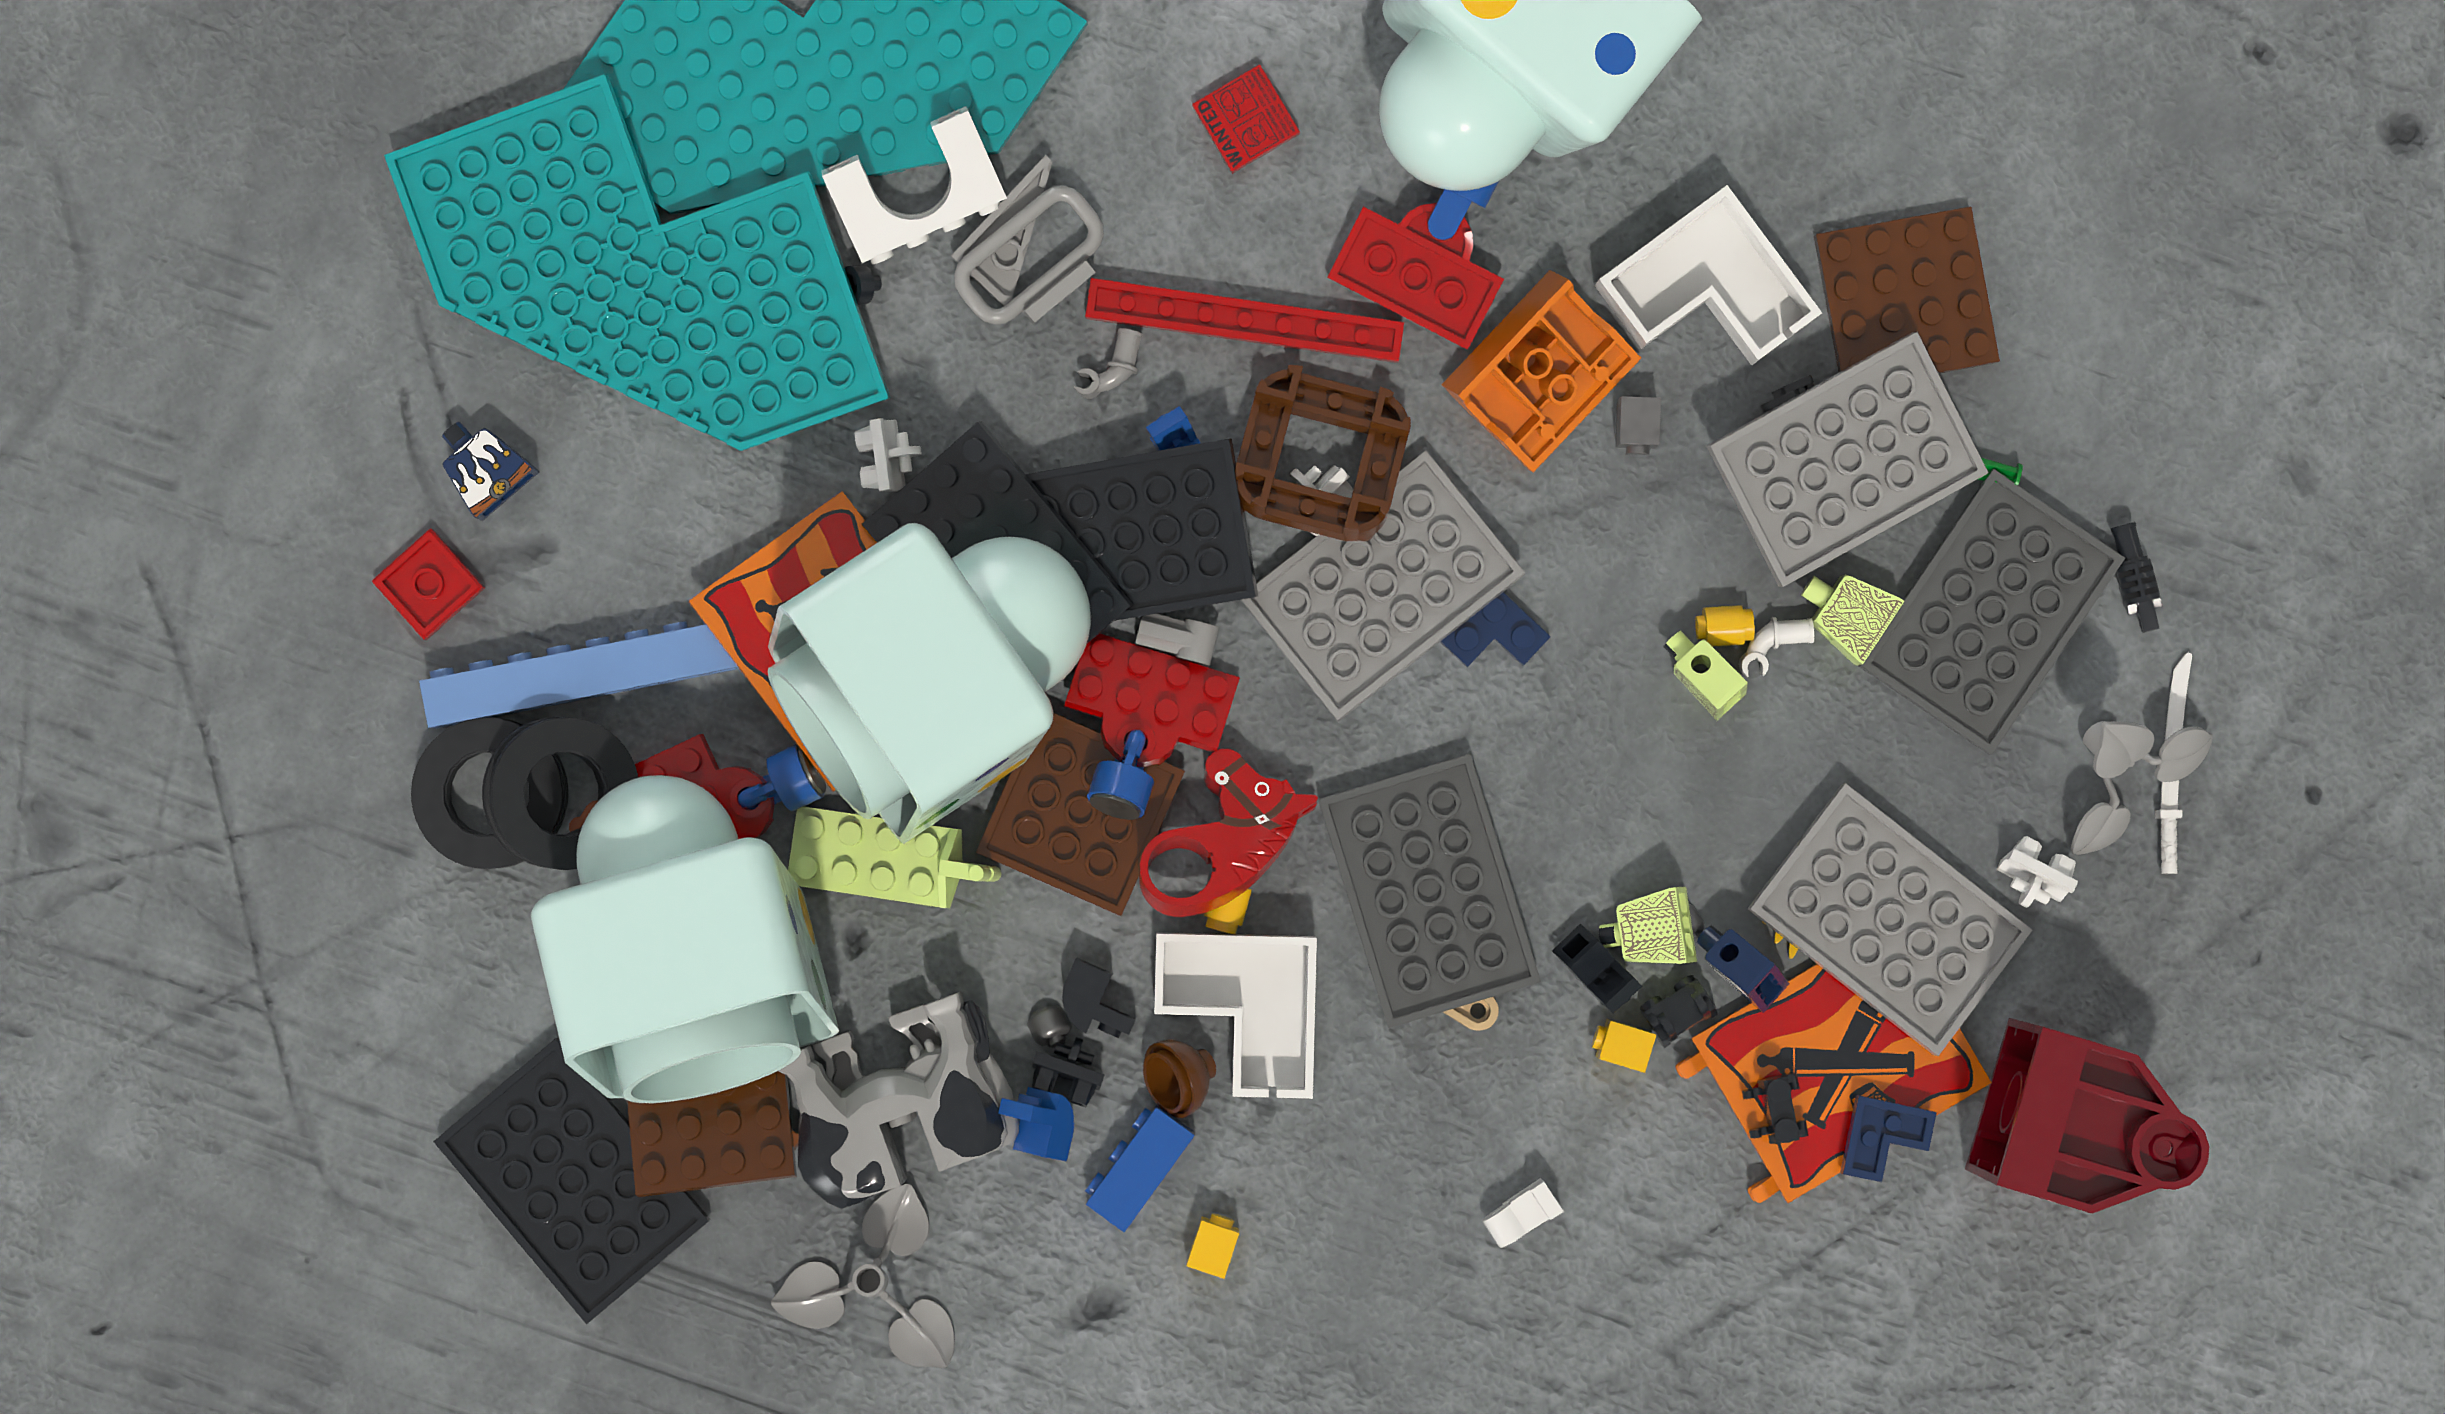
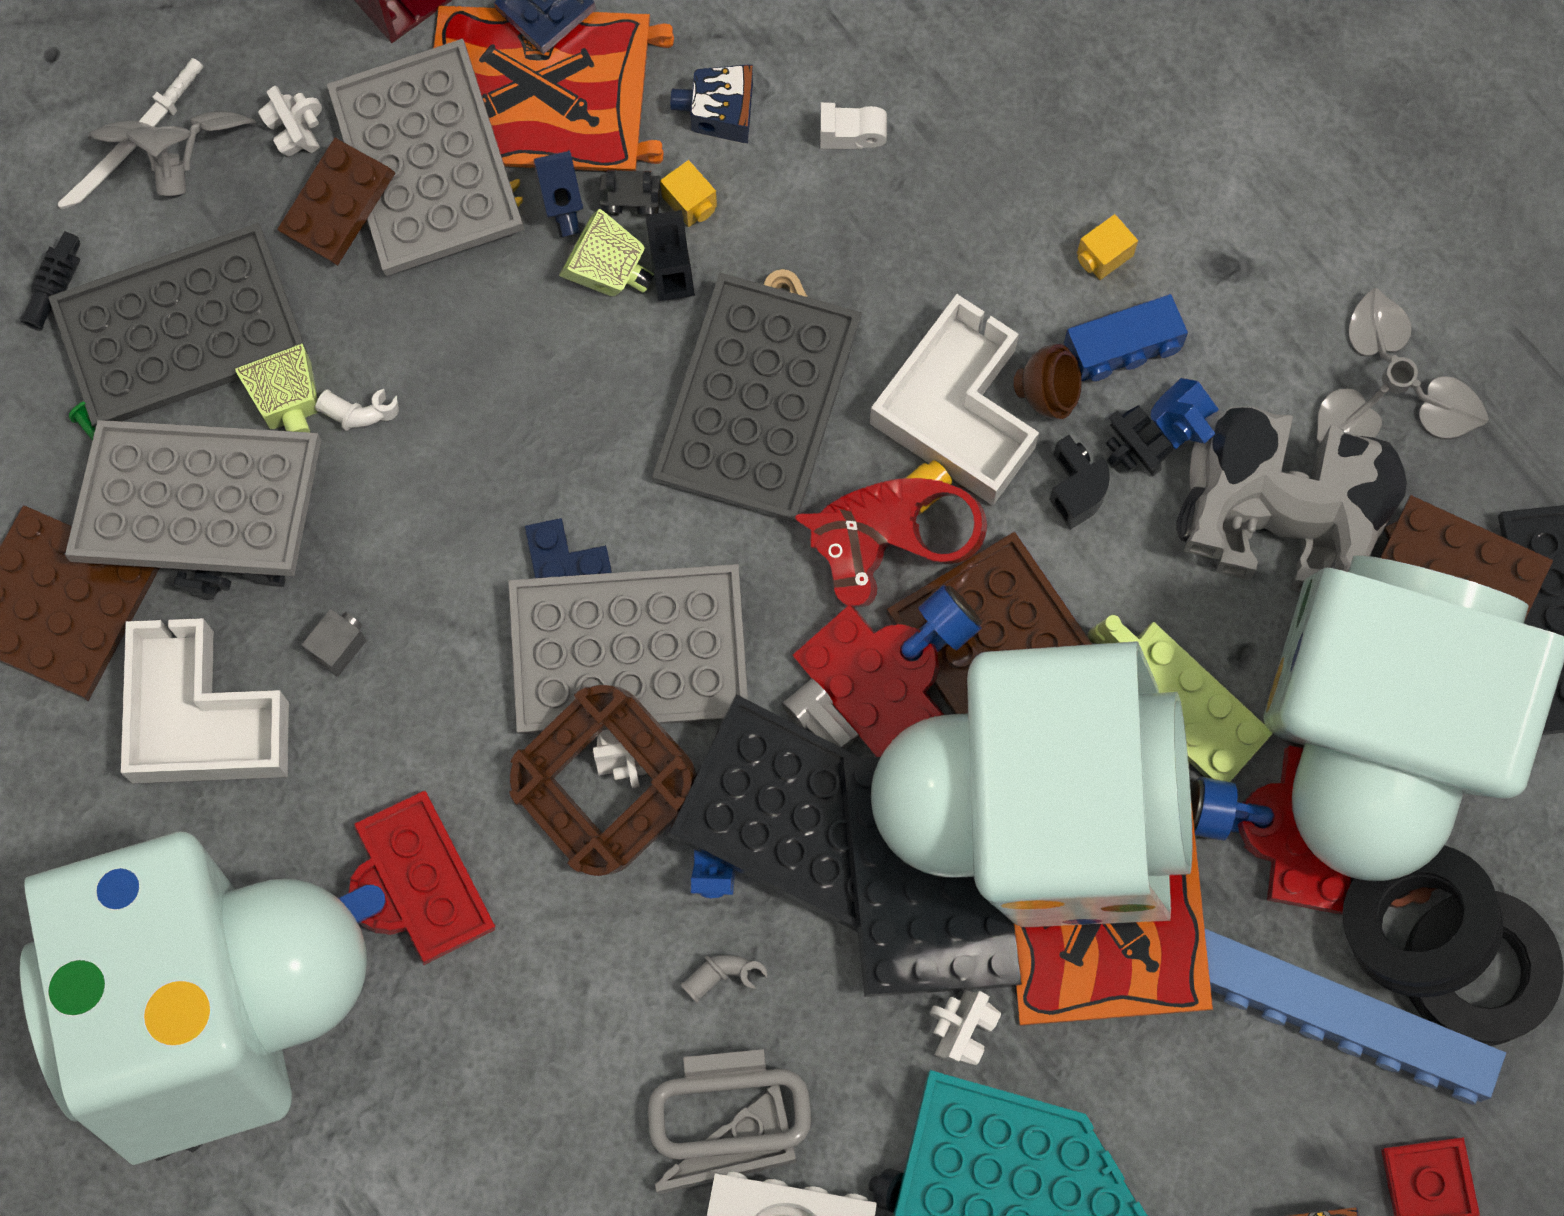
camera: 145 degrees left, 15 degrees down
(1049, 1025) = (1127, 491): flat silver piece -> none
(1244, 320) = (589, 939): red plate -> none
(1245, 119) = (467, 1109): red tile -> none
(1541, 370) = (379, 736): orange piece -> none
(1661, 1155) = (718, 102): none -> torso
(1716, 688) = (422, 401): yellowish green torso -> none
(1725, 625) = (384, 445): yellow brick -> none
(1778, 1109) = (608, 74): black piece -> none
(1936, 821) = (336, 201): none -> reddish brown plate

